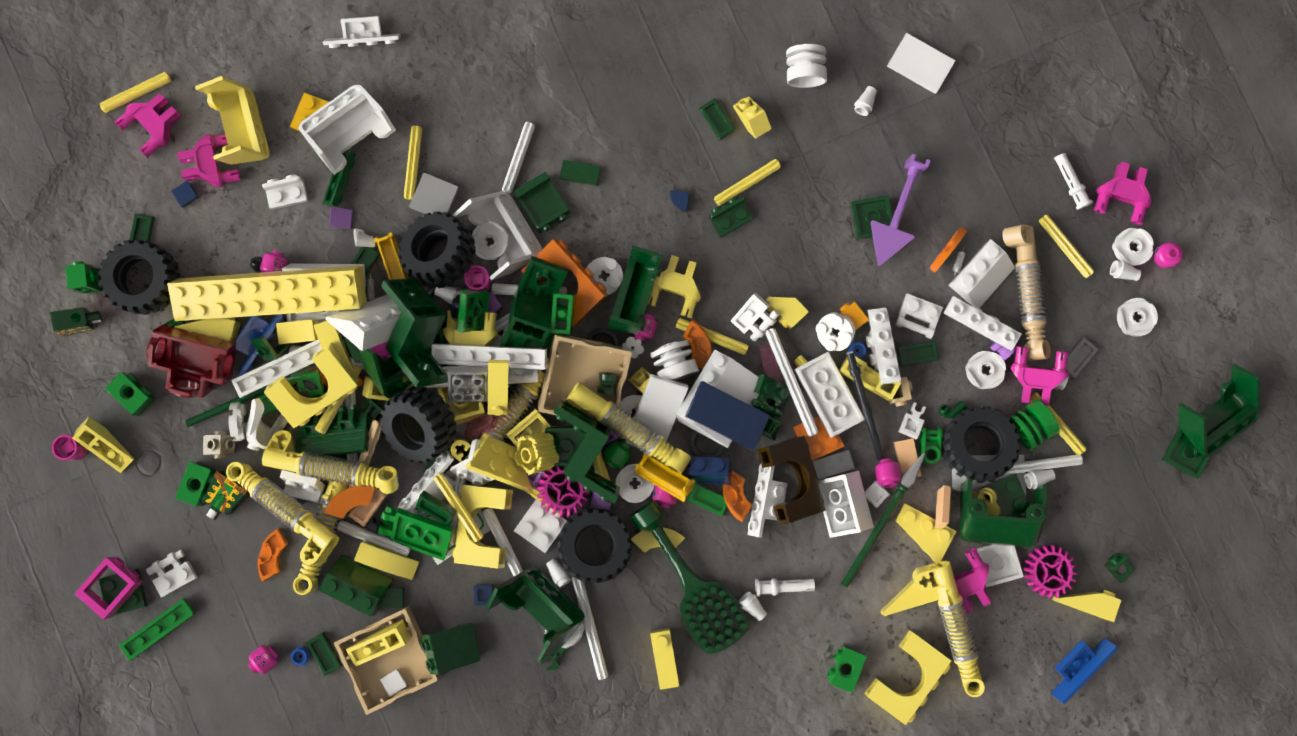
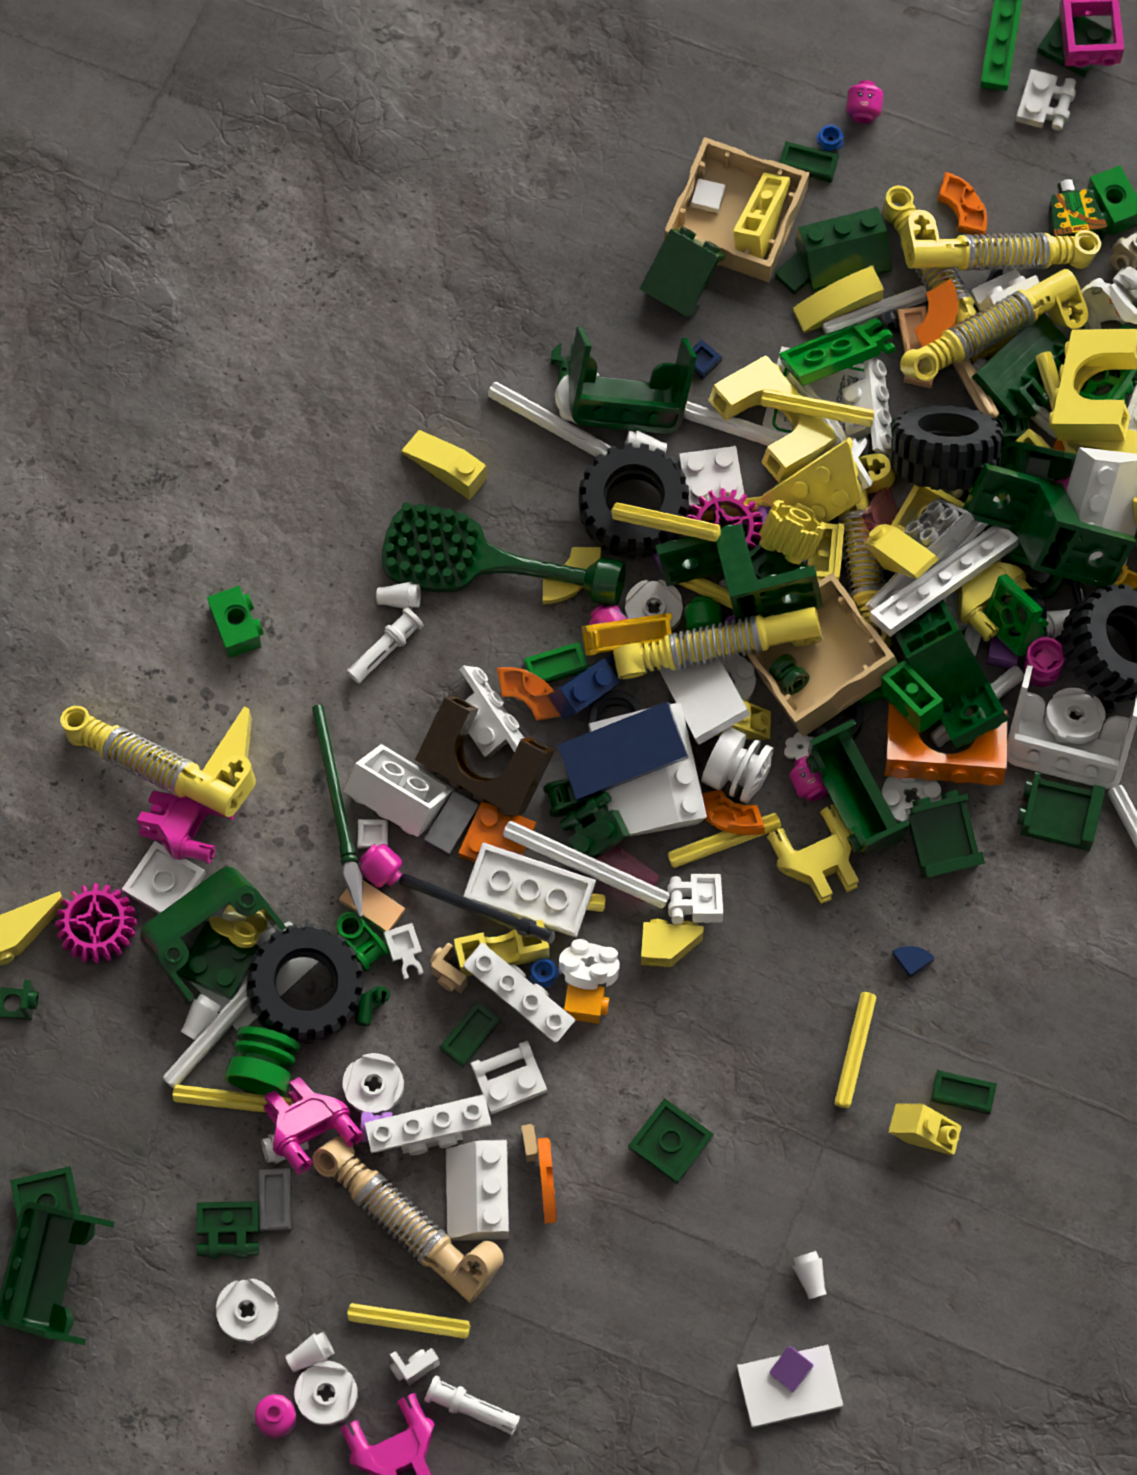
camera: 135 degrees right, 15 degrees down
(436, 508) = (840, 385): dark green tile -> none
(580, 172) = (1055, 885): dark green tile -> none
(598, 510) = (666, 522): none -> light yellow axle
(610, 239) = (943, 835): none -> dark green panel
(730, 216) = (834, 991): dark green bracket -> none
(806, 65) = (921, 1241): white wheel -> none
(889, 239) = (628, 1128): medium lavender piece -> none
(904, 705) = (138, 637): light yellow arch -> none
(916, 66) = (791, 1369): none -> medium lavender slope
(923, 531) = (277, 845): light yellow wing -> none
(938, 275) = (530, 1144): none -> tan tile
(943, 506) = (284, 881): light nougat tile -> none
(959, 261) = (520, 1185): white piece -> none
(1080, 220) = (419, 1365): none -> white bracket
(1109, 367) = (227, 1219): none -> dark green plate

